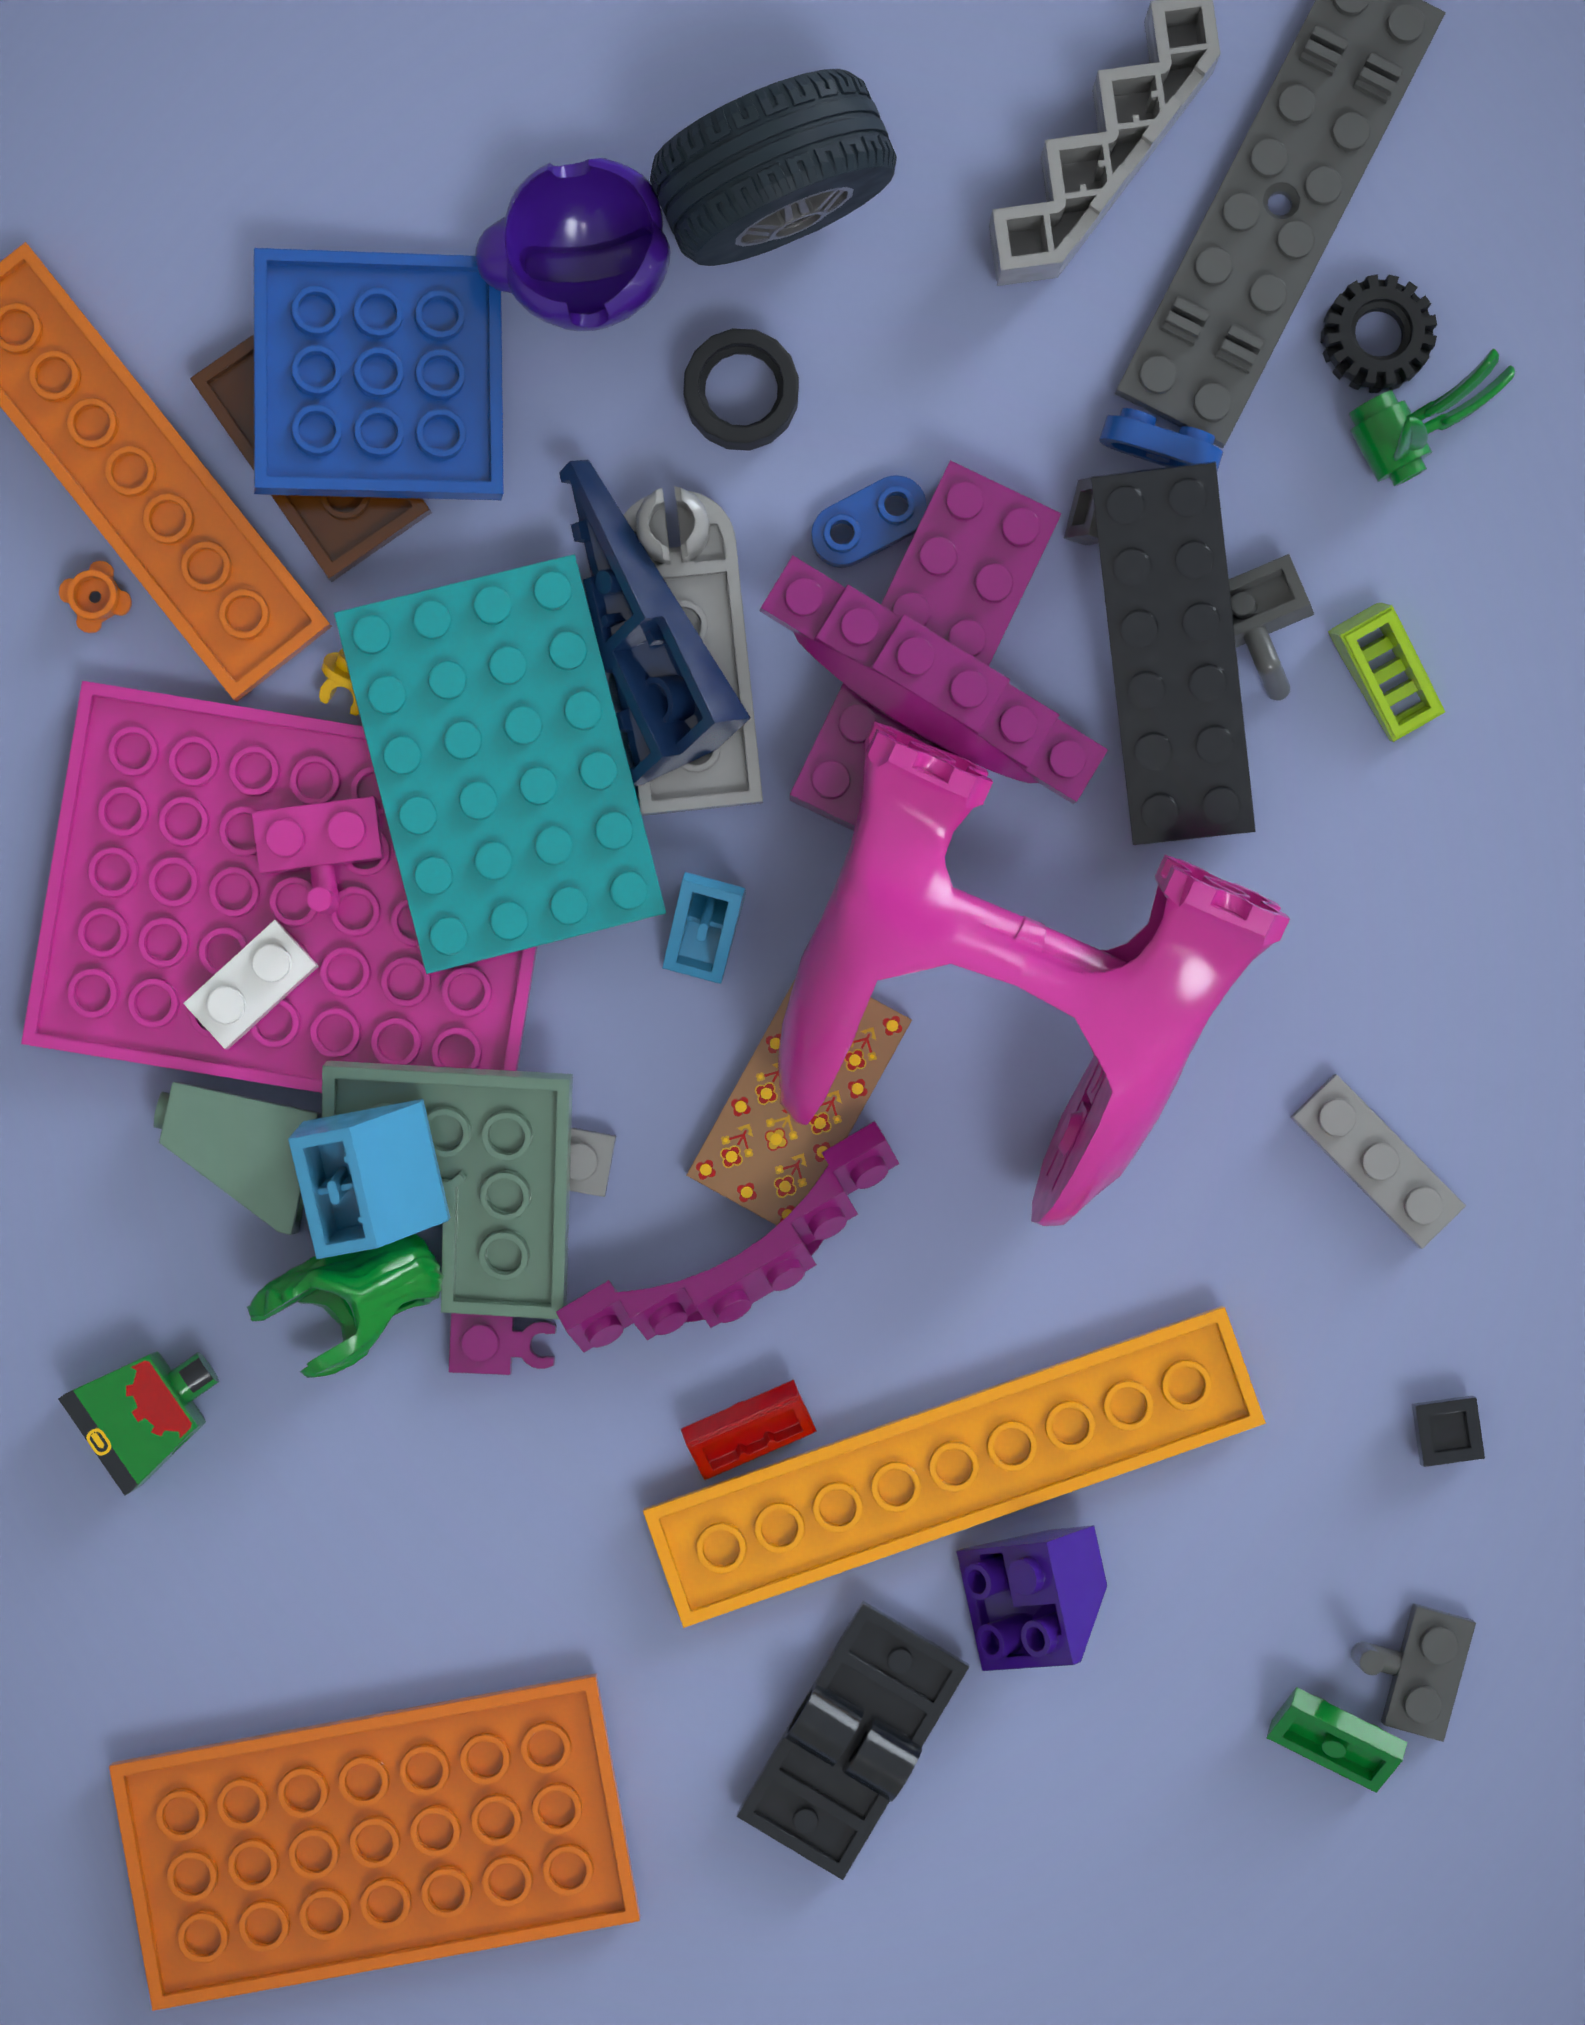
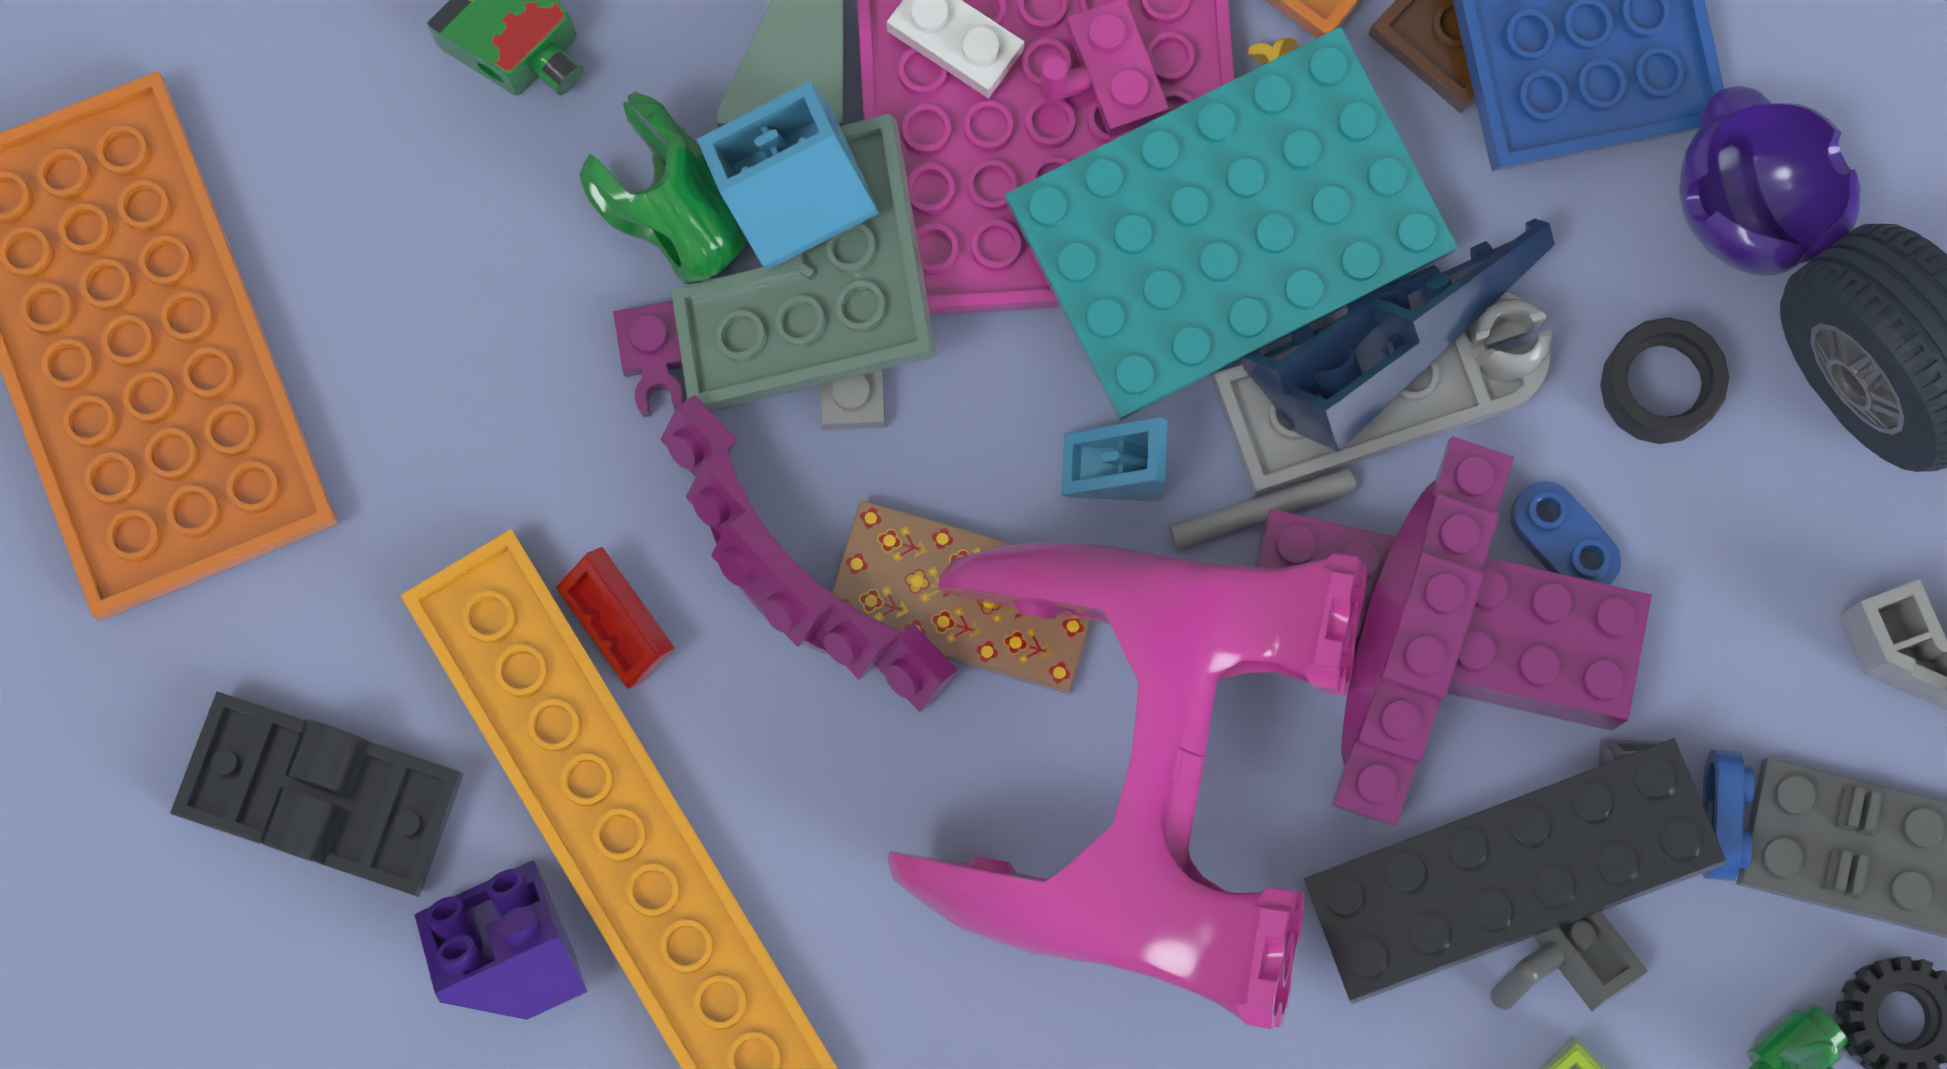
camera: 75 degrees right, 10 degrees down
(776, 797) = (1256, 510): none -> light grey bar

